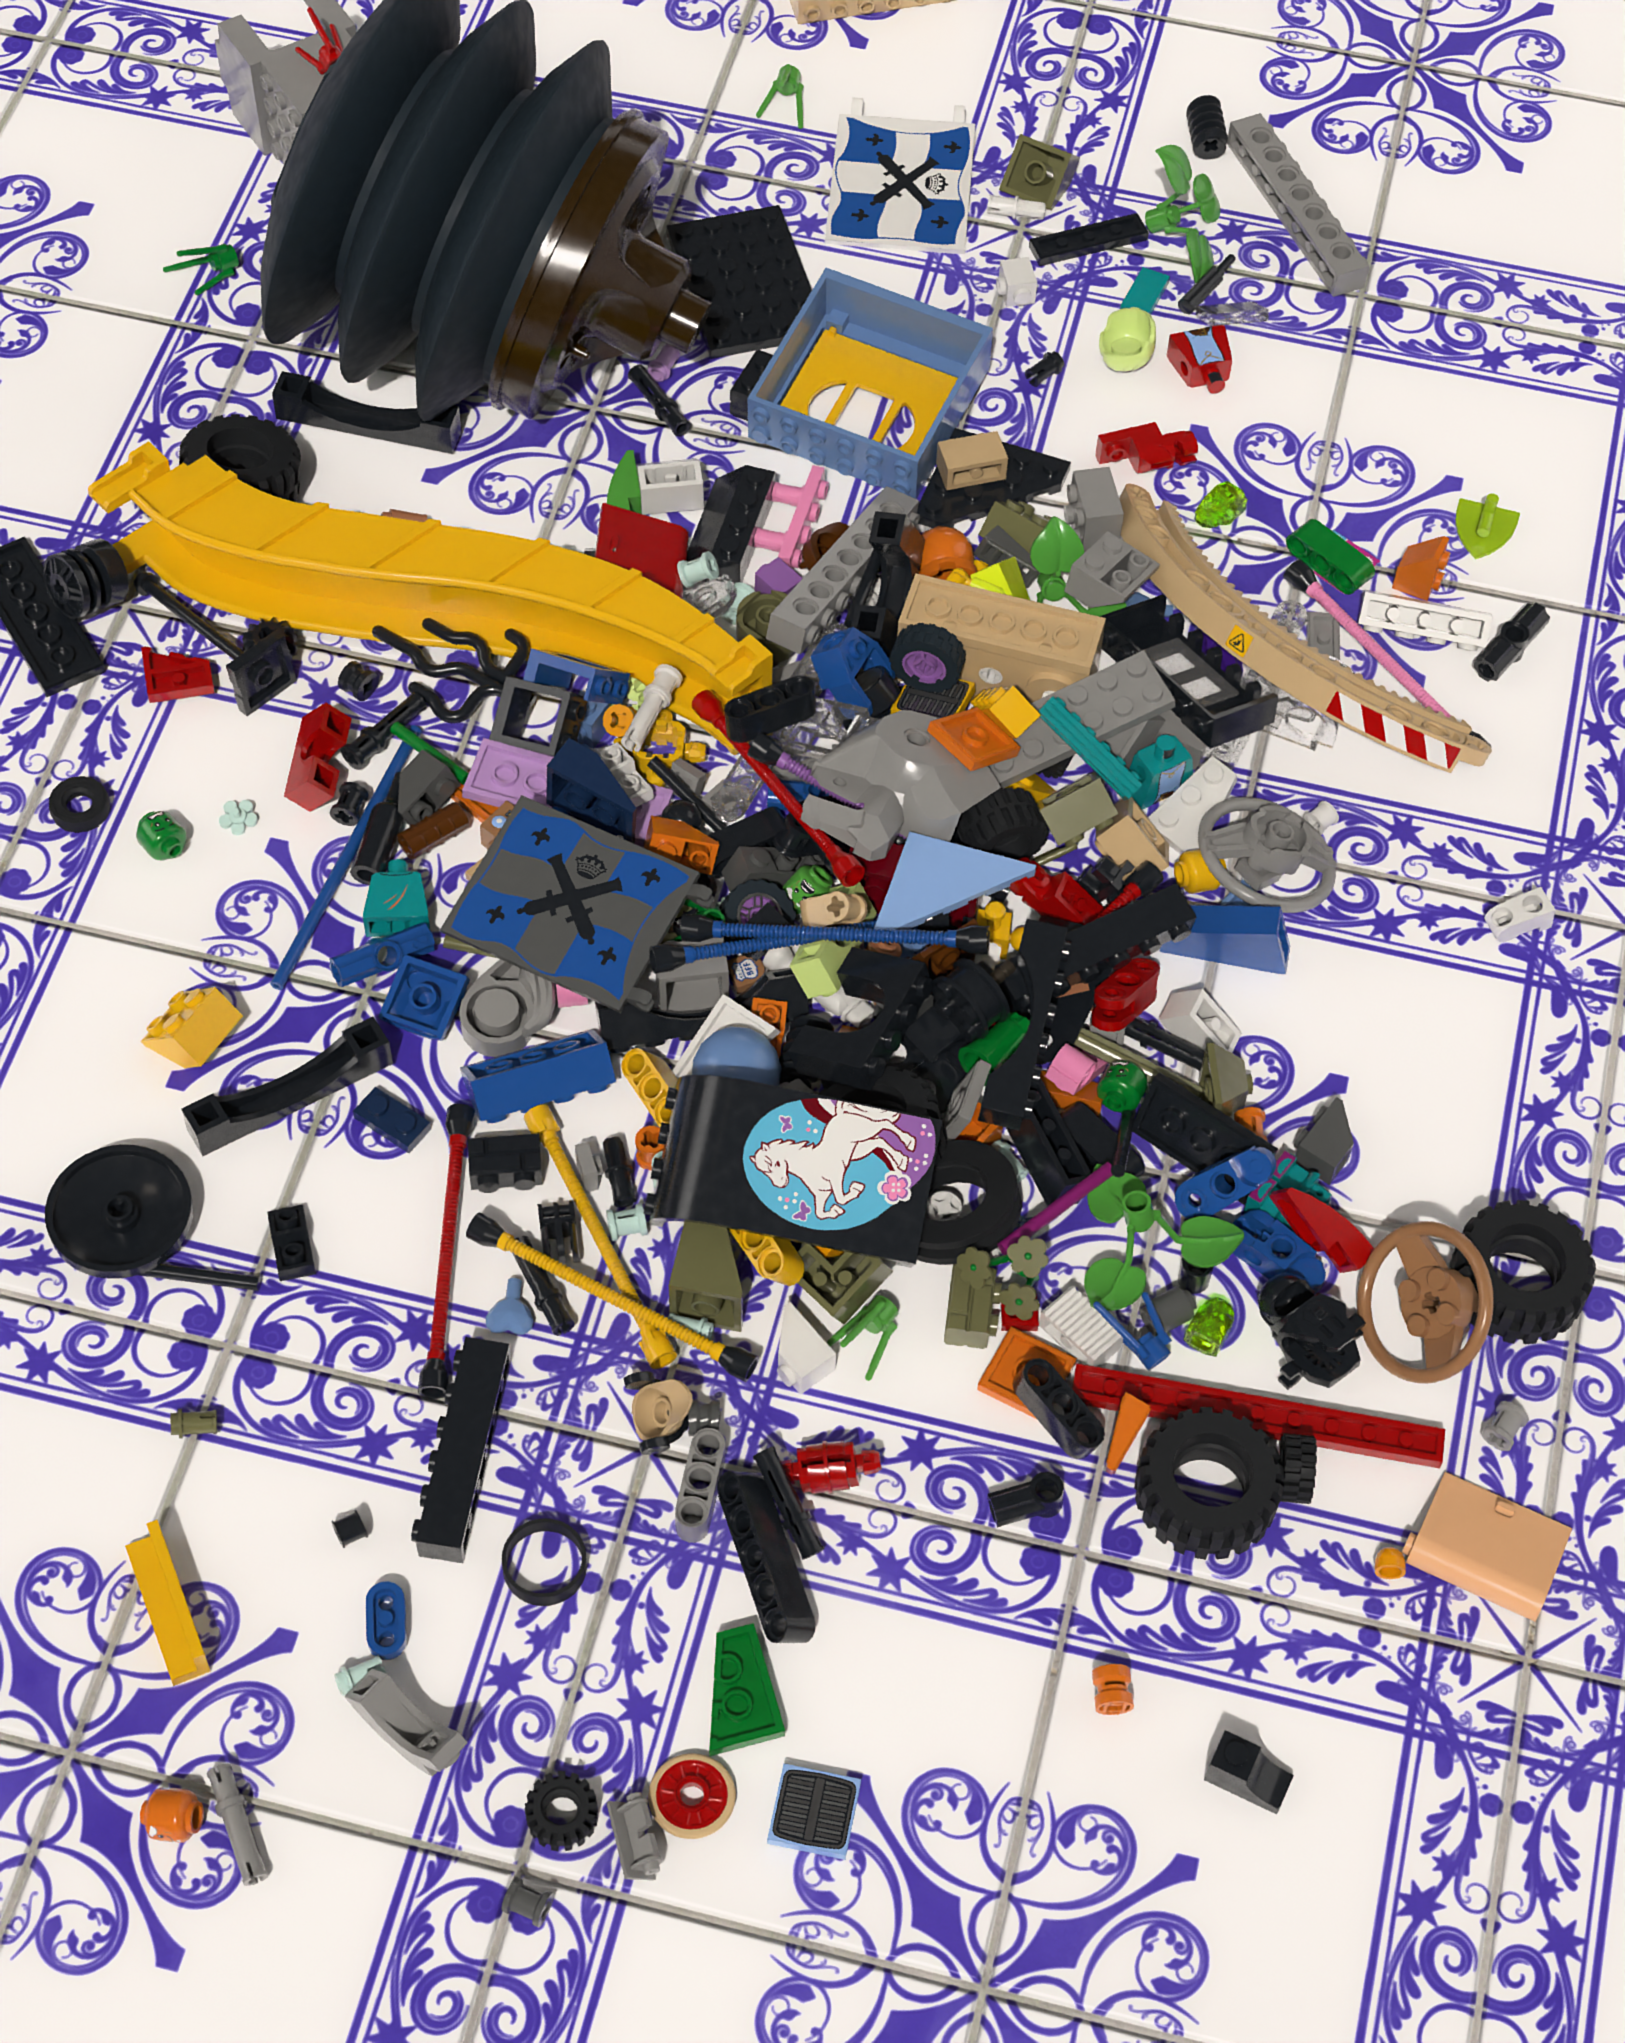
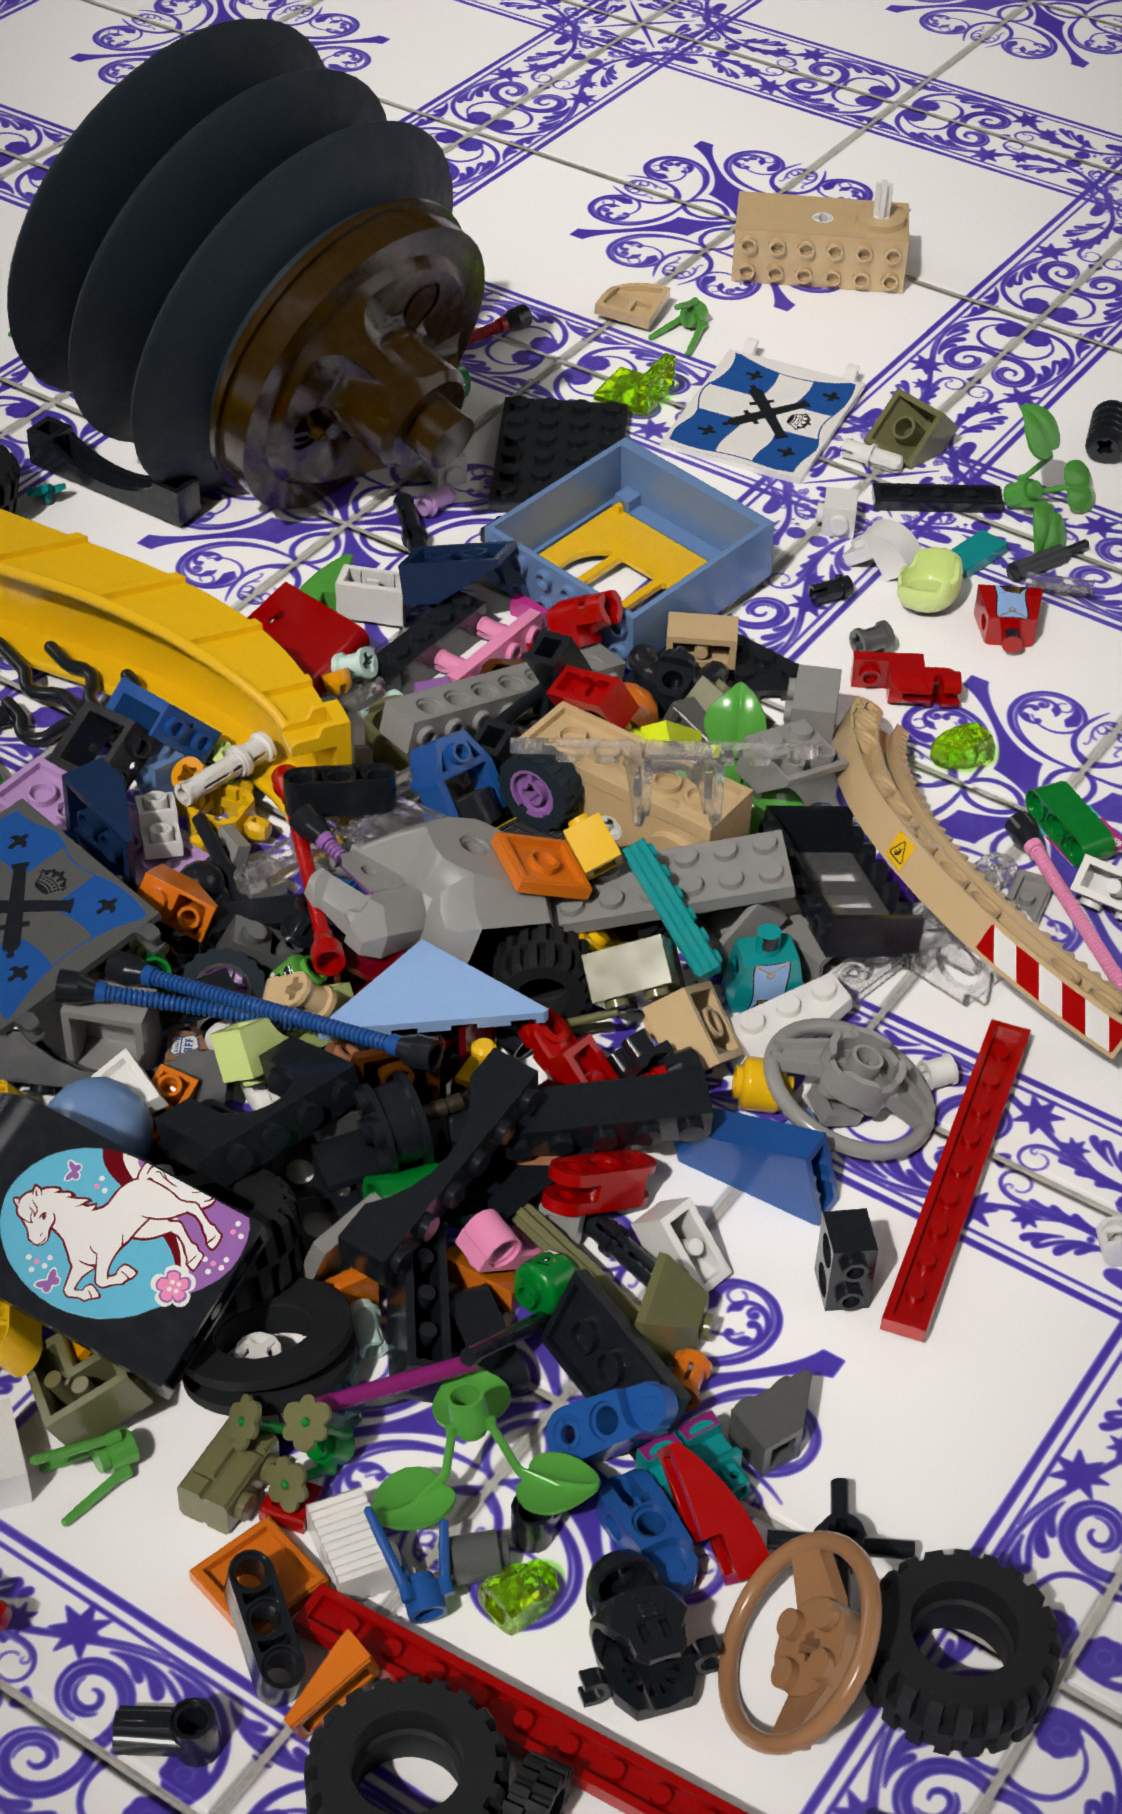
camera: 20 degrees right, 15 degrees down
(314, 447) = (45, 490): none -> teal plant
(693, 589) = (337, 680): none -> light orange hinge
(727, 80) = (633, 303): none -> tan plate
(739, 448) = (442, 570): none -> dark blue slope
(777, 183) = (637, 389): none -> clear neon green bracket
(801, 461) = (520, 604): none -> dark pink piece
(867, 476) = (585, 616): none -> red plate
(938, 560) = (595, 694): none -> red brick
(966, 505) = (672, 674): none -> black head
(1034, 611) = (688, 758): none -> clear piece
(1079, 311) = (888, 544): none -> white brick
(1101, 413) = (873, 638): none -> dark grey bush
(1327, 1002) = (846, 1259): none -> black brick
(1371, 904) = (955, 1183): none -> red plate
(1406, 1210) = (847, 1524): none -> black bar

